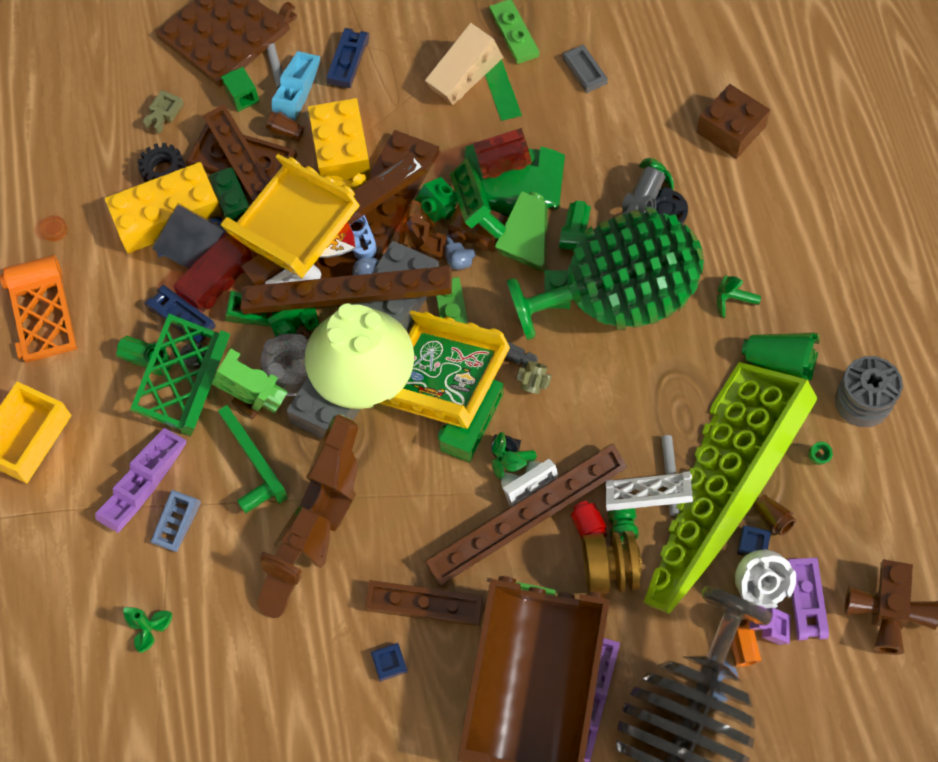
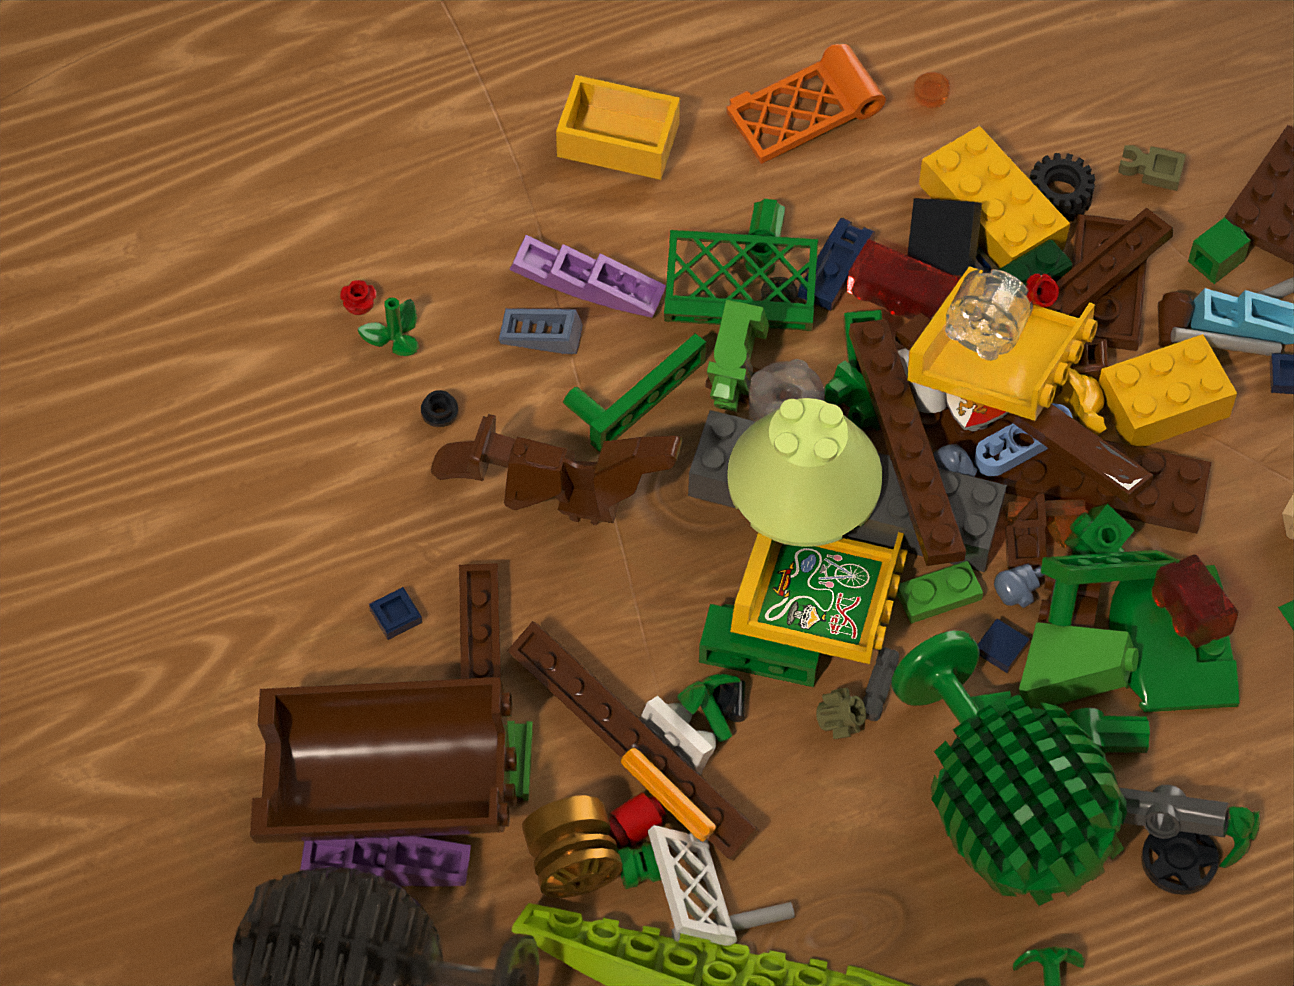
camera: 75 degrees right, 5 degrees down
(111, 654) = (361, 304): none -> red plate
(219, 597) = (439, 400): none -> black plate
(250, 188) = (1048, 293): none -> red plate
(271, 212) = (988, 313): none -> clear brick
(309, 101) = (1229, 342): none -> light grey bar
(497, 274) = (1002, 645): none -> dark blue tile
(577, 495) = (668, 794): none -> light orange axle

